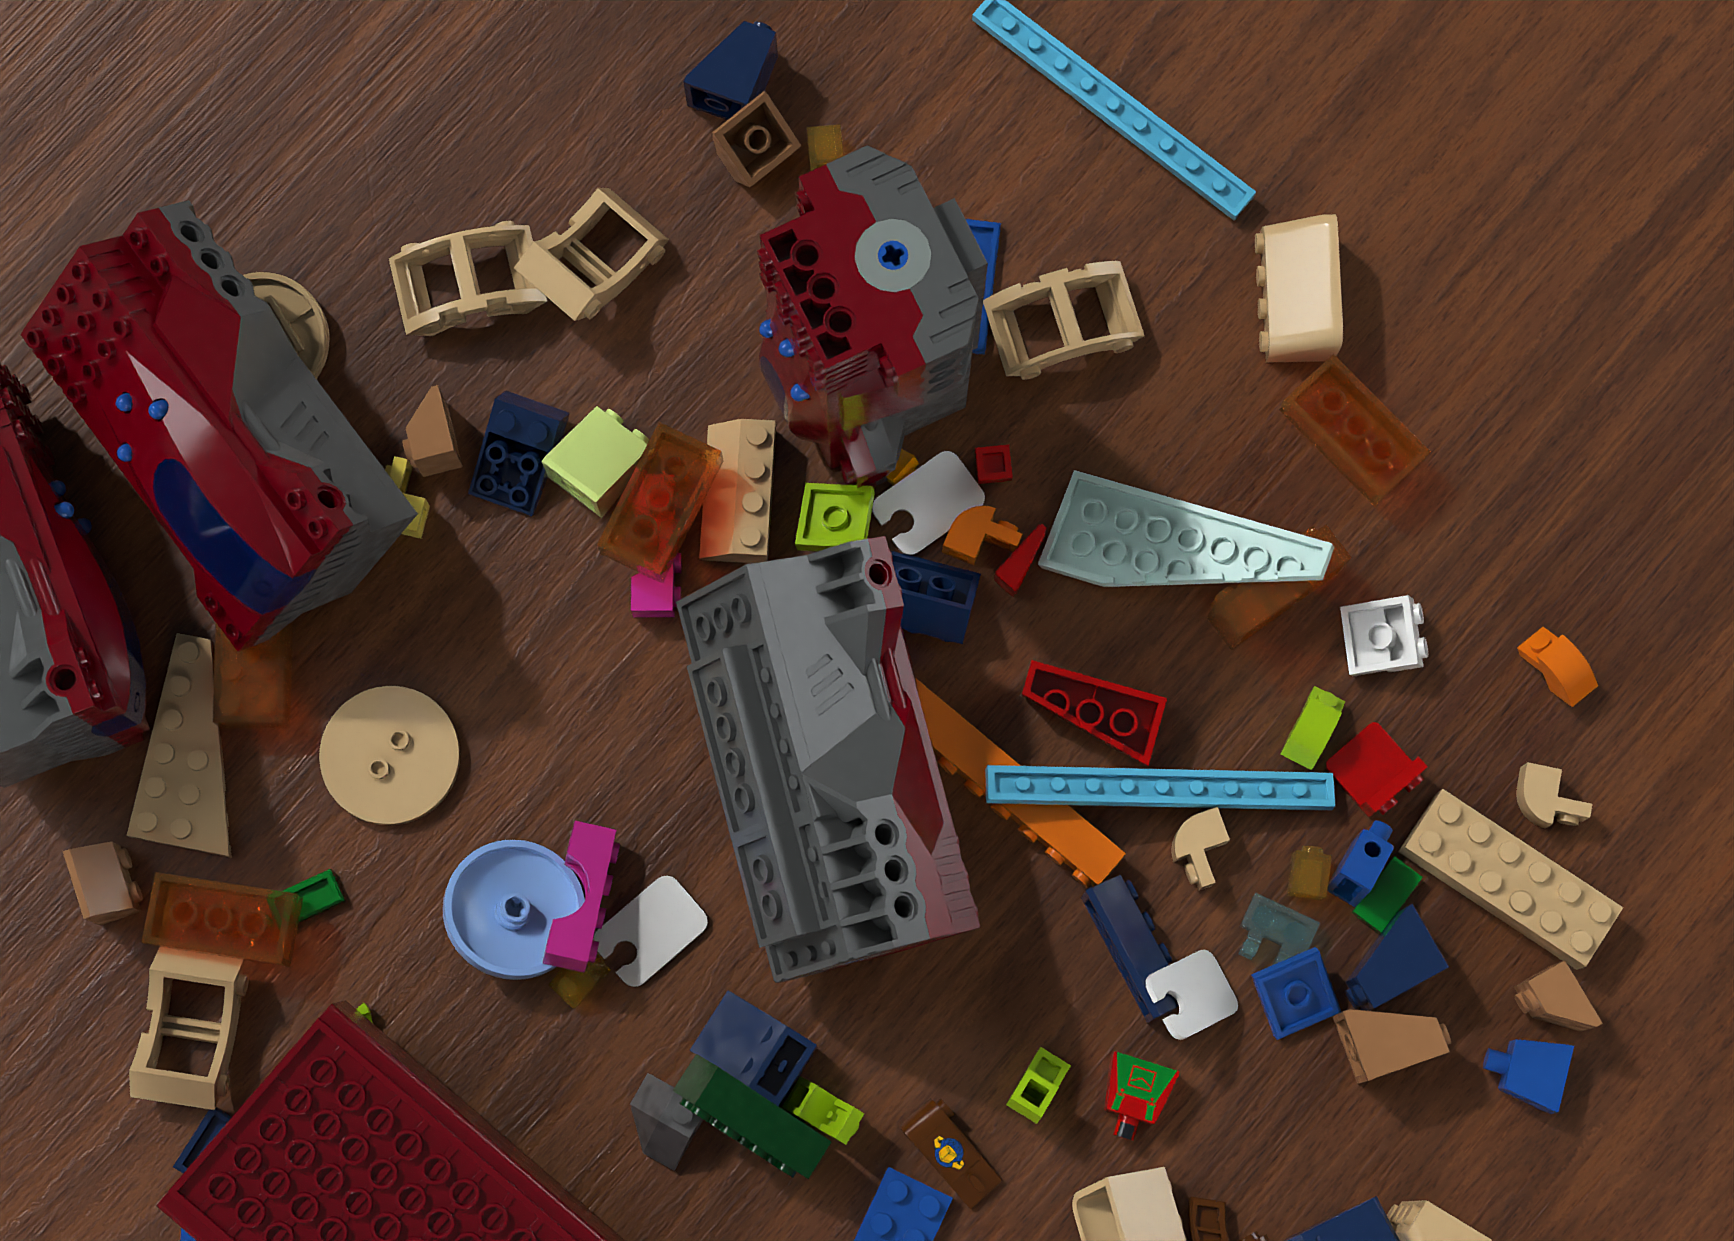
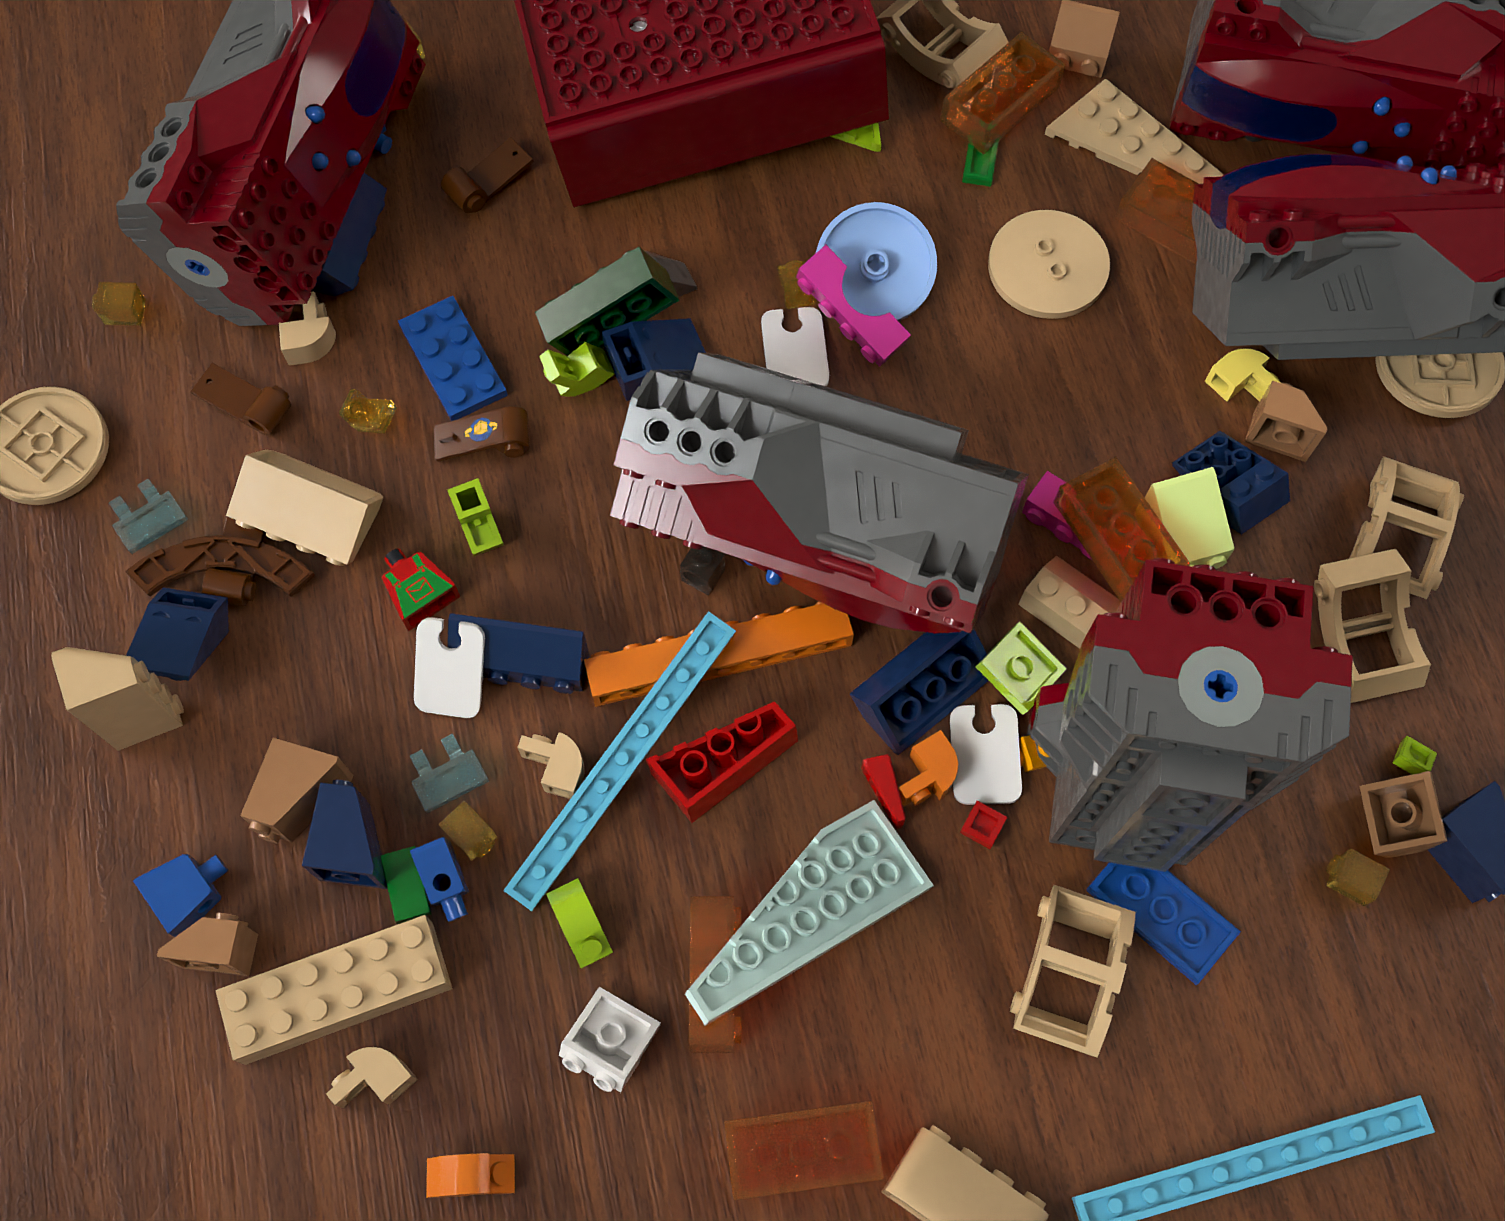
camera: 125 degrees right, 10 degrees down
(684, 161) = (1414, 756): none -> lime tile
(1296, 993) = (389, 752): blue tile -> none
(1374, 769) = (506, 948): red bracket -> none

